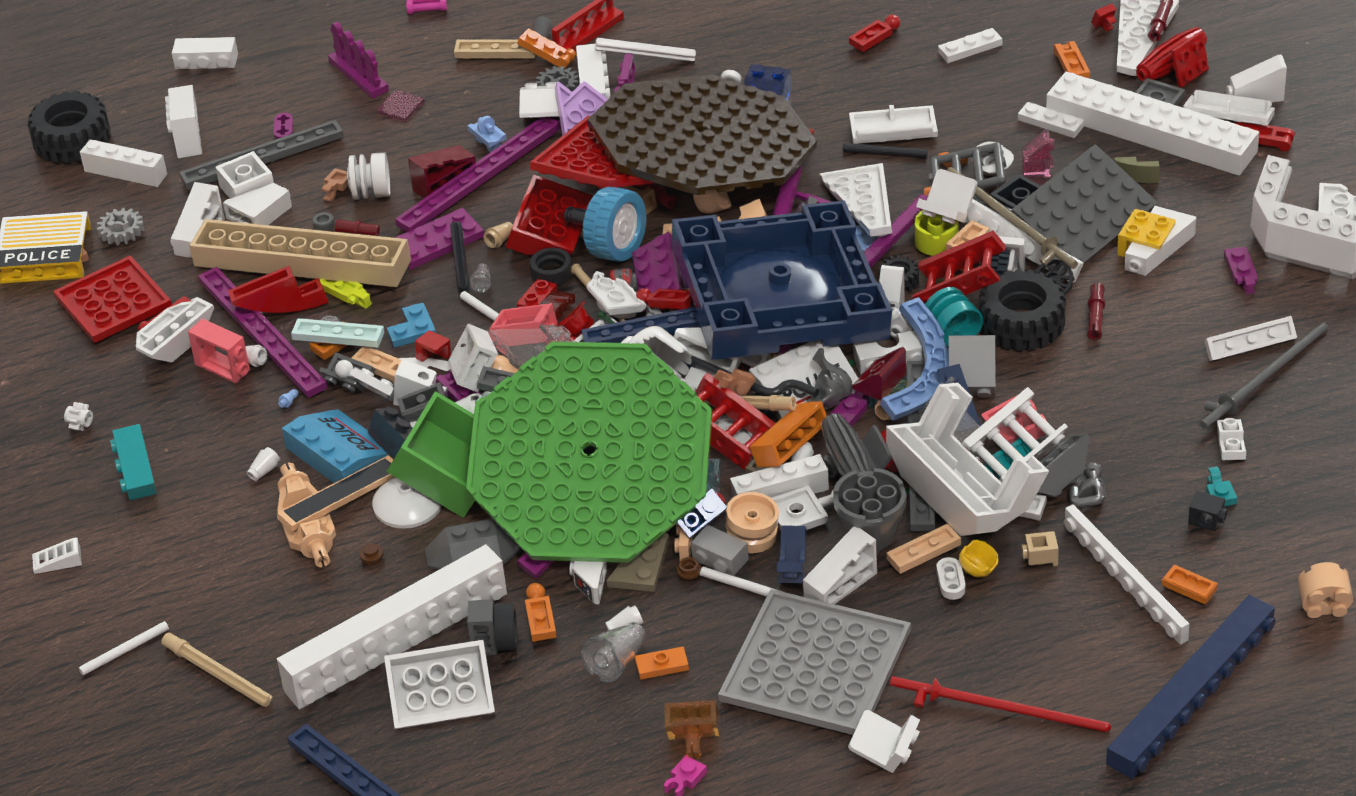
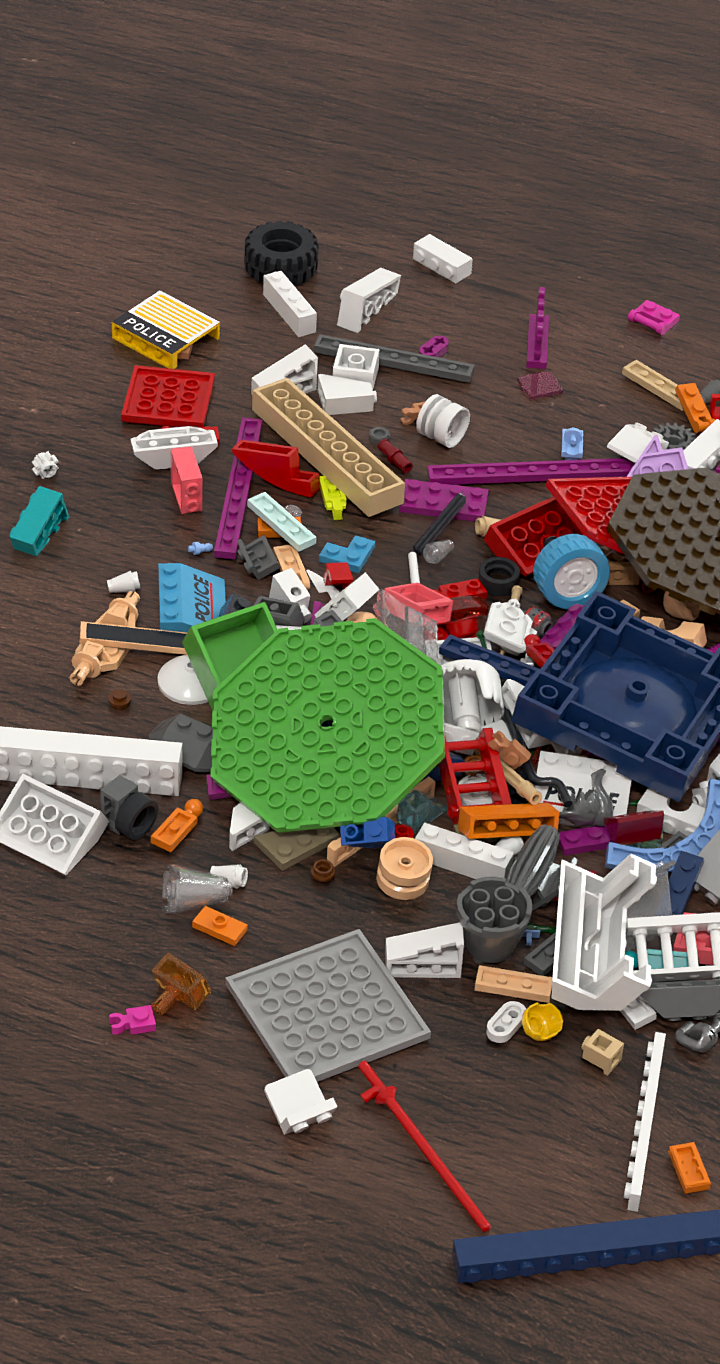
camera: 35 degrees right, 0 degrees up
(120, 226) = (234, 348): light grey gear -> none
(256, 355) = (211, 499): white cone -> none
(365, 378) = (260, 566): white plate -> none
(437, 168) = (502, 446): dark red wedge -> none
(719, 550) = (358, 873): light grey brick -> none
(735, 581) = (347, 907): white bar -> none
(792, 554) = (407, 916): dark blue arch -> none
(803, 500) = (445, 875): white plate -> none

